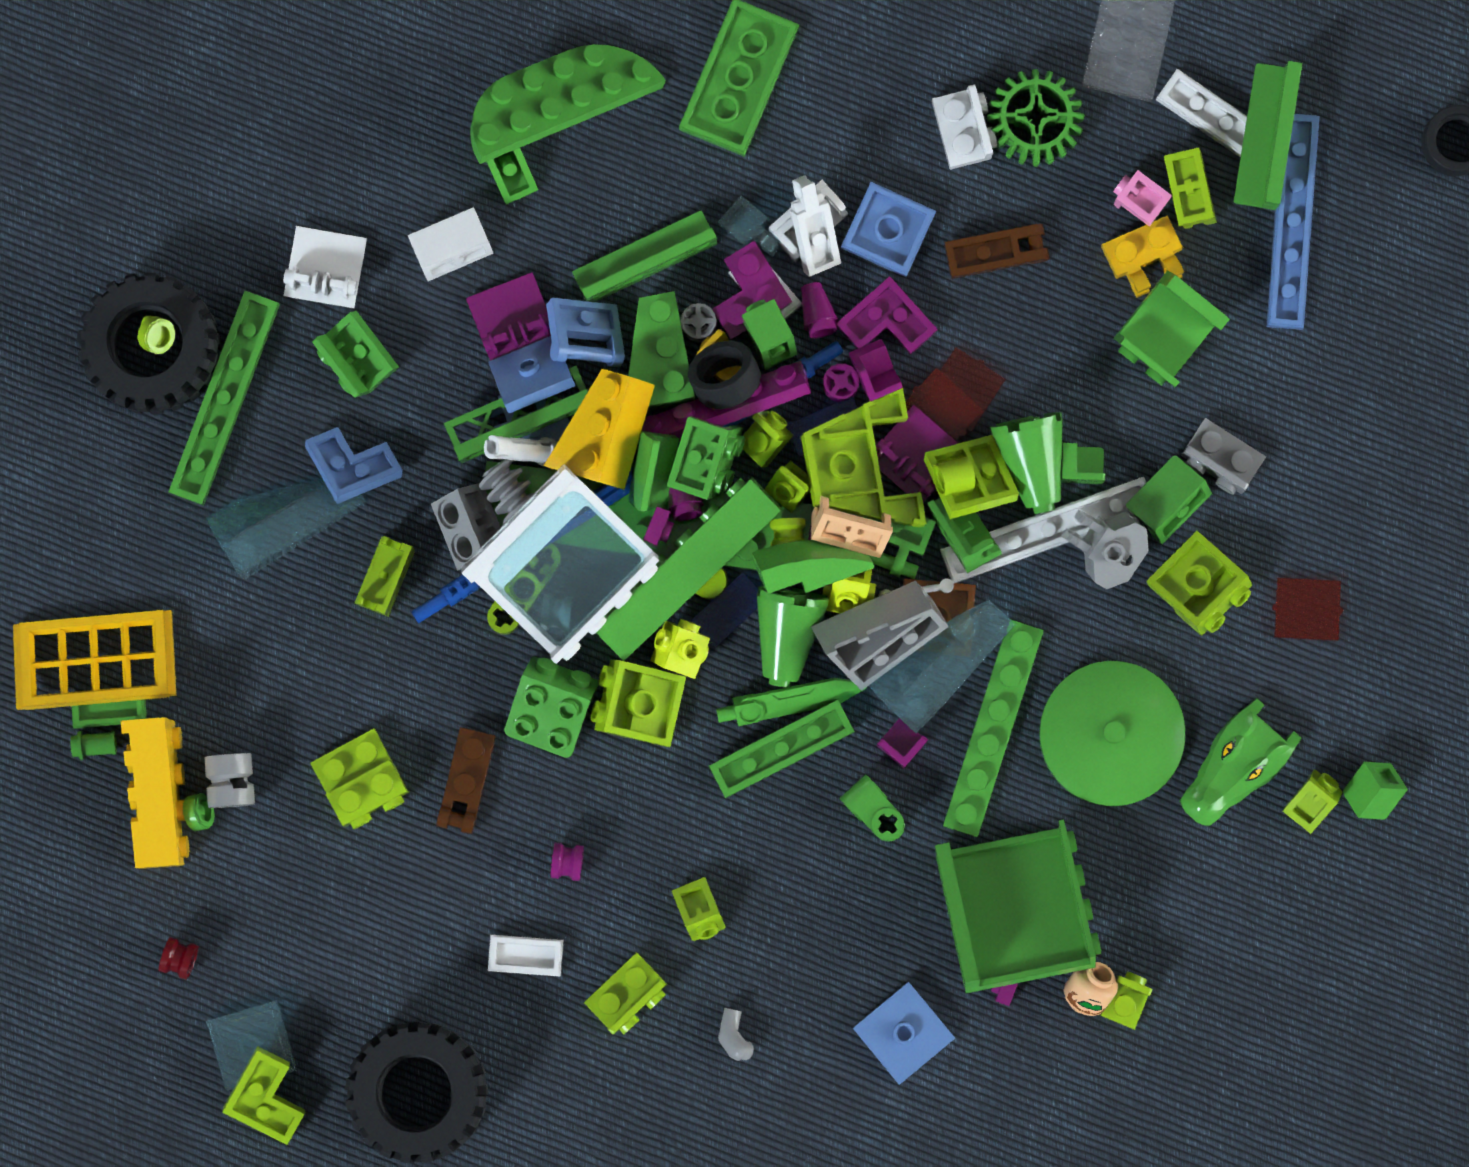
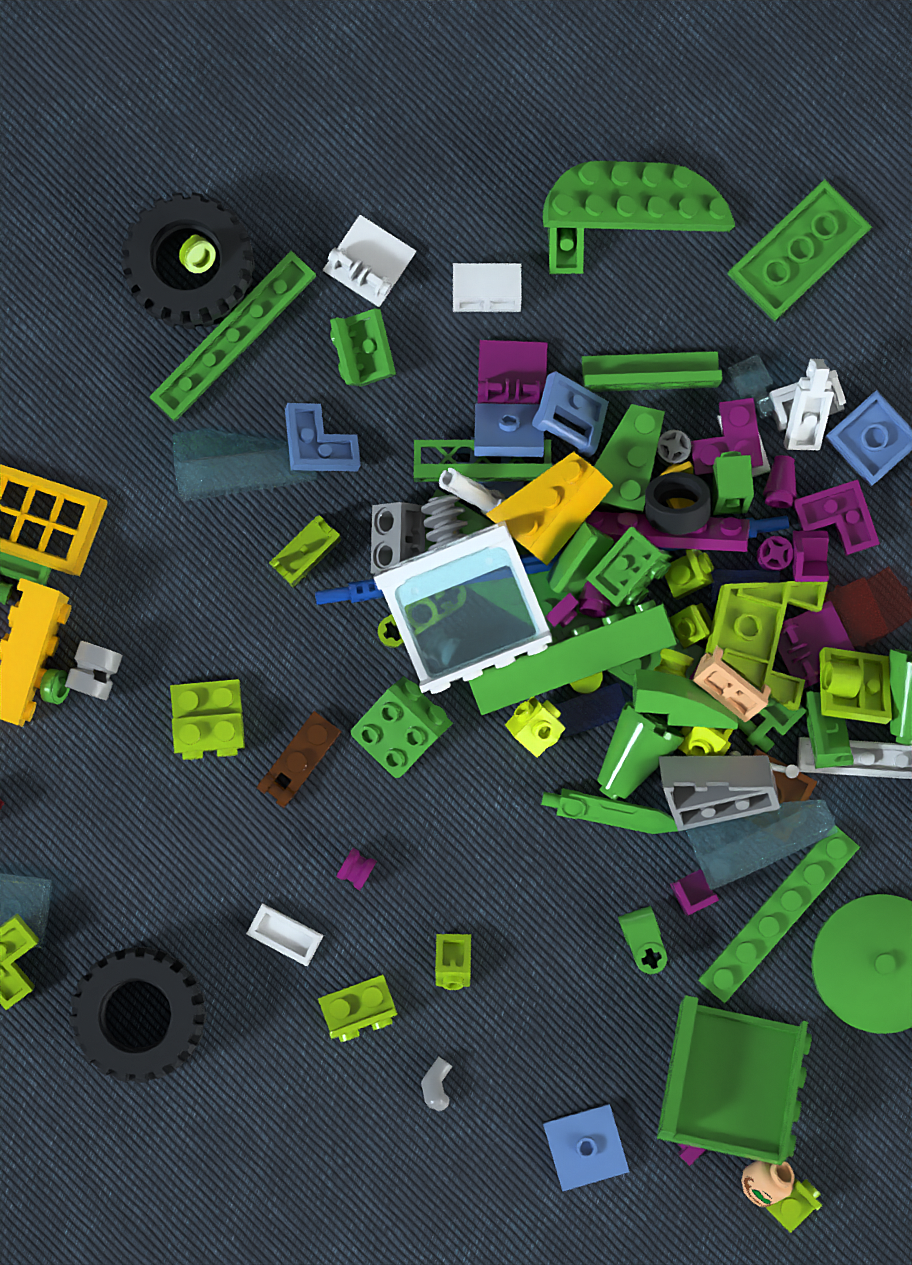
camera: 15 degrees right, 0 degrees up
(638, 702) = (478, 756): lime plate -> none
(781, 749) = (586, 851): bright green plate -> none

